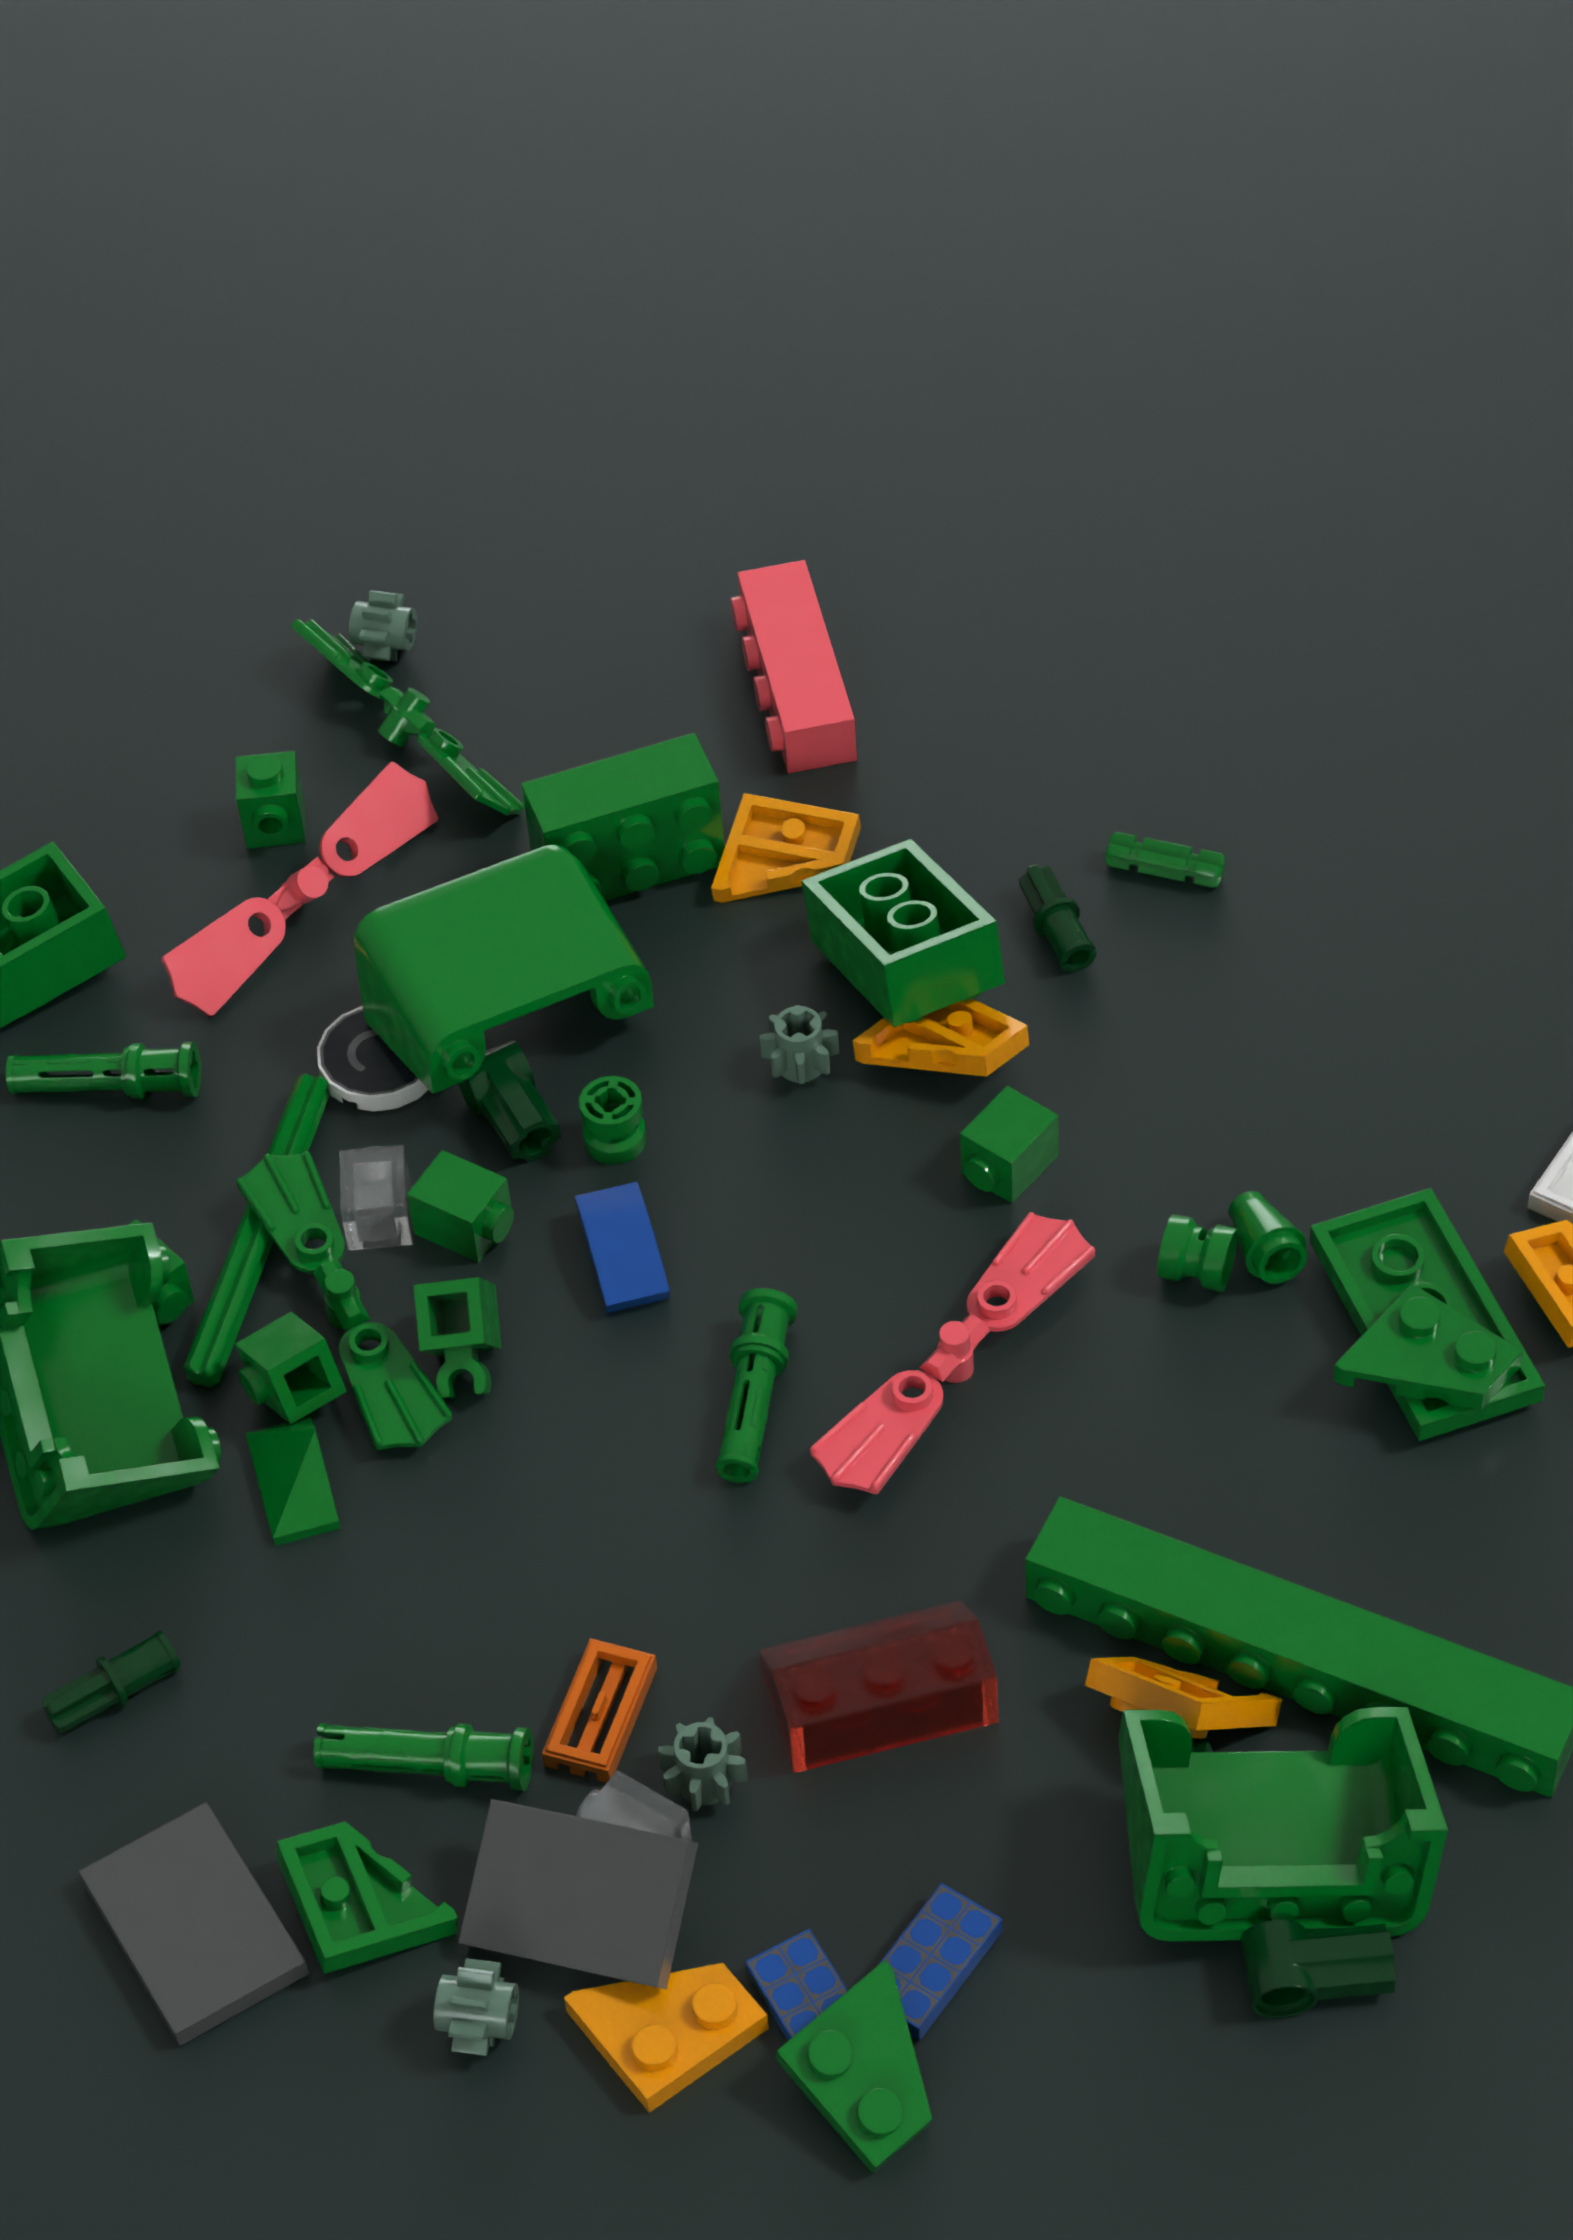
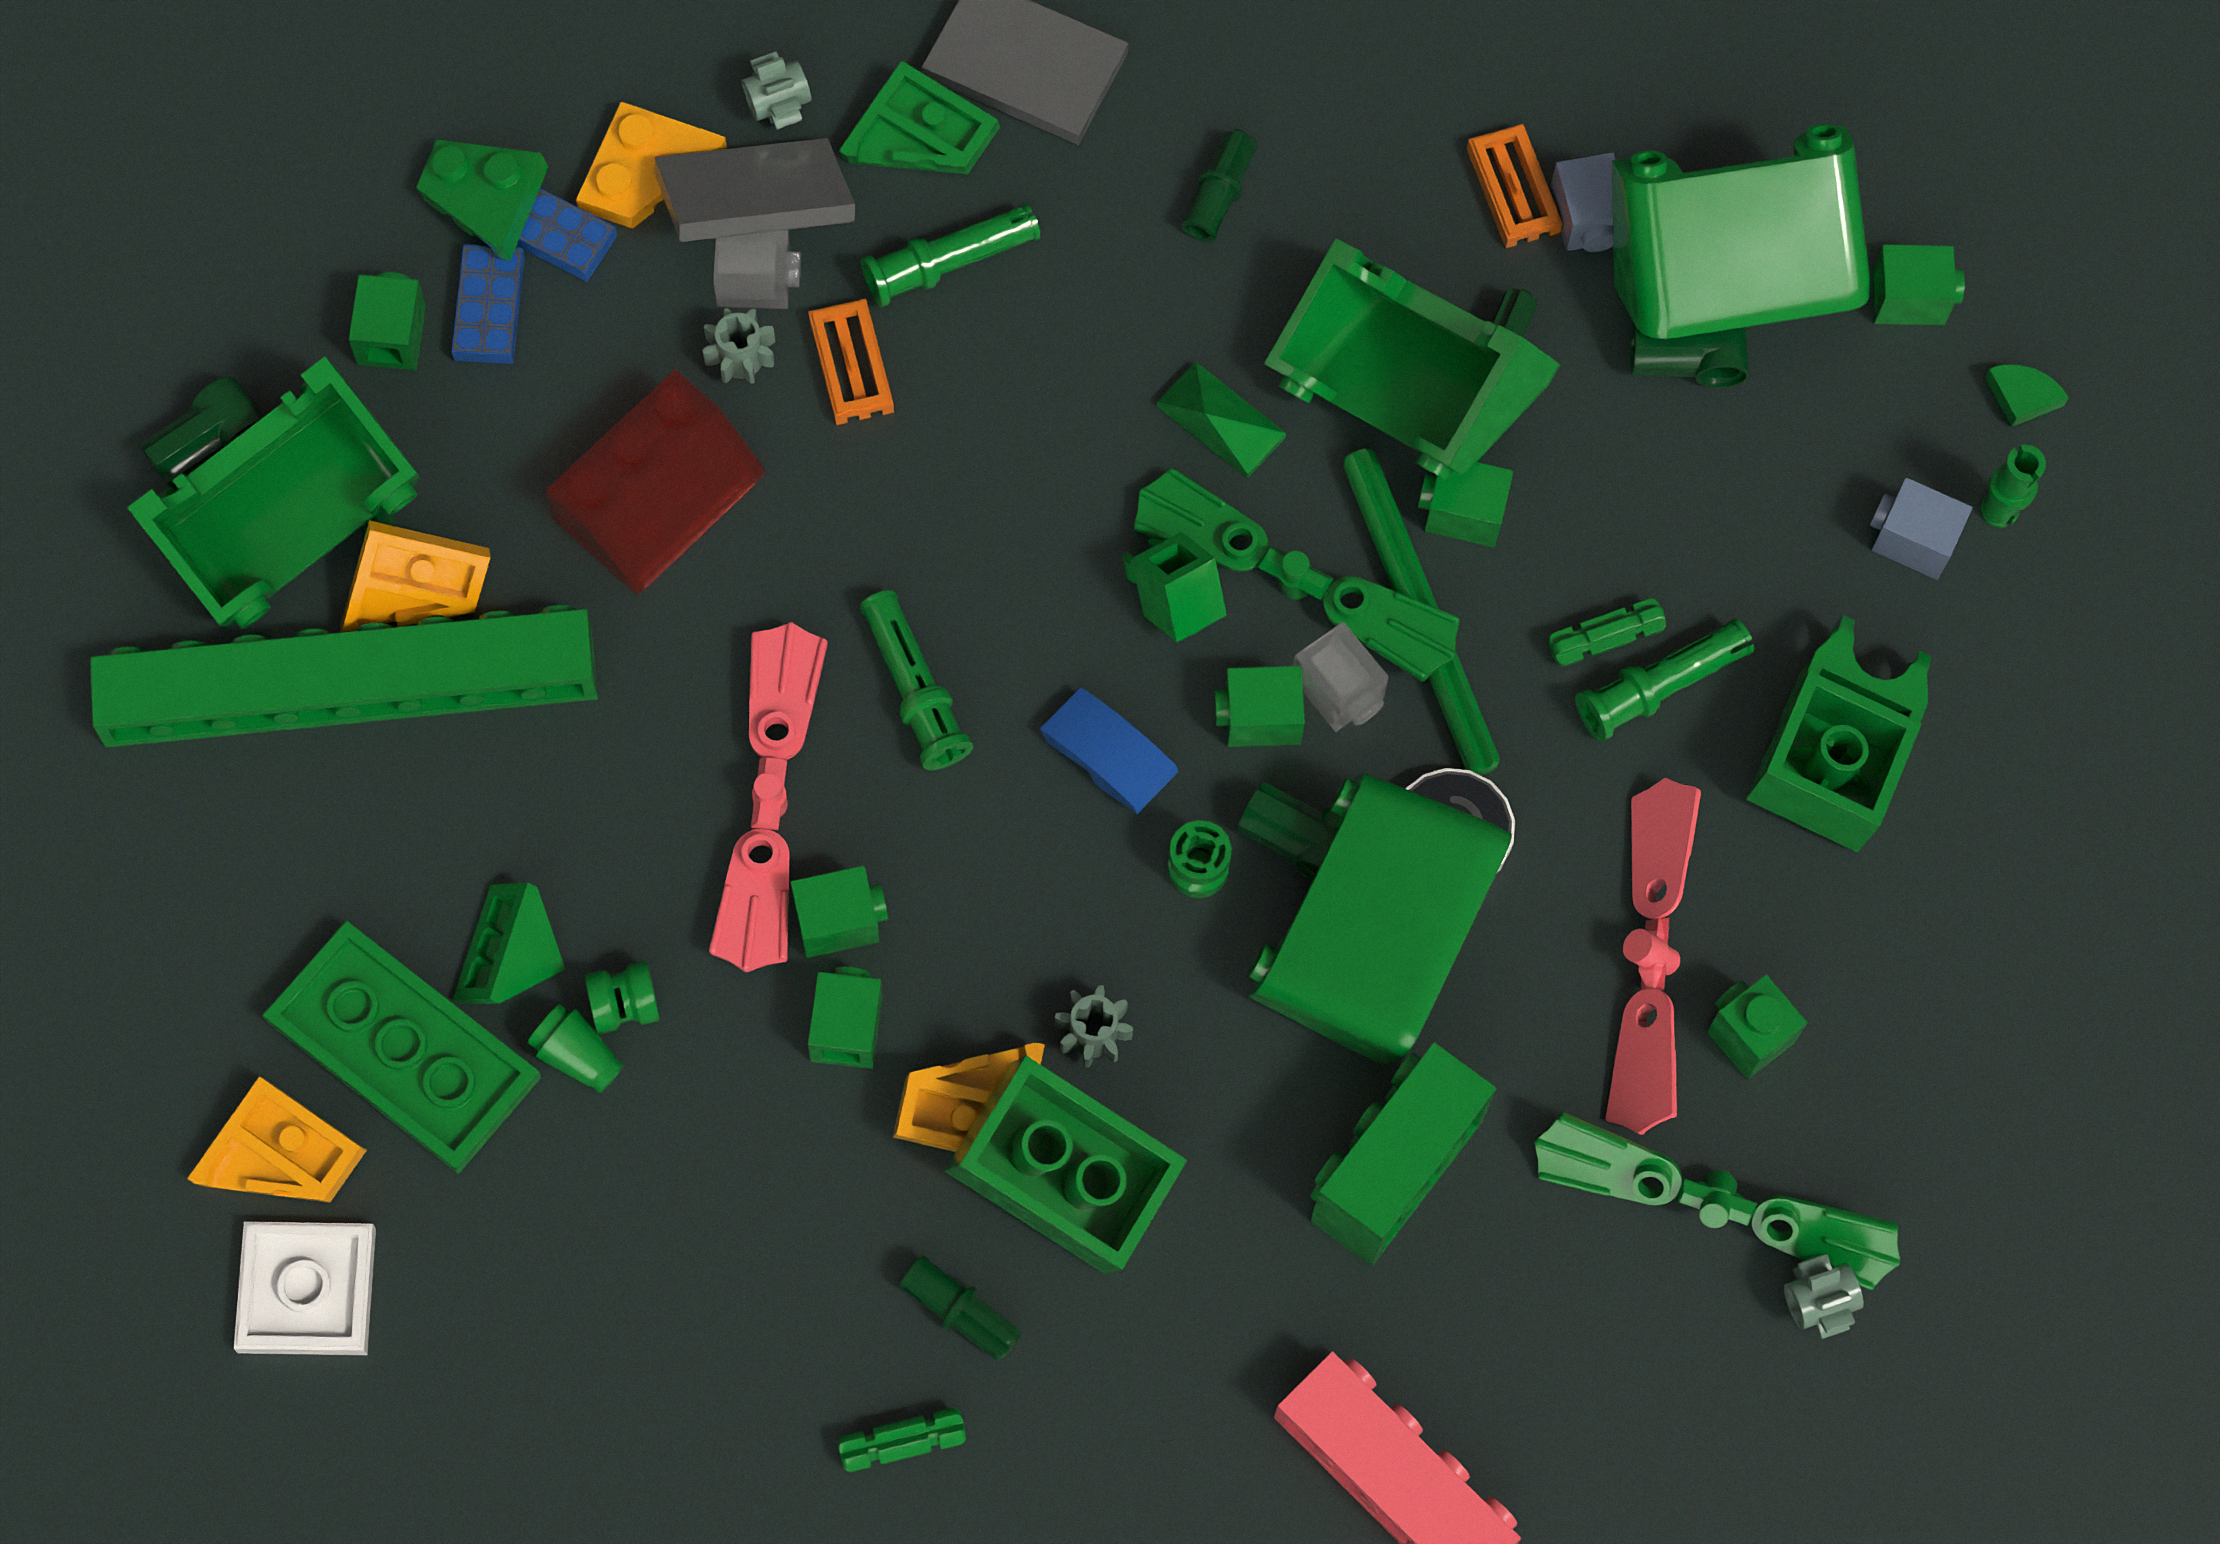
camera: 140 degrees right, 20 degrees up
(118, 1132) = (1607, 632): none -> green axle
(289, 1368) = (1282, 479): green brick -> none
(780, 845) = (1260, 1249): light orange wing -> none
(958, 1226) = (838, 911): none -> green brick
(1051, 1980) = (387, 321): none -> green brick
(1284, 1349) = (509, 947): none -> green slope
(1430, 1353) = (368, 981): green wing -> none

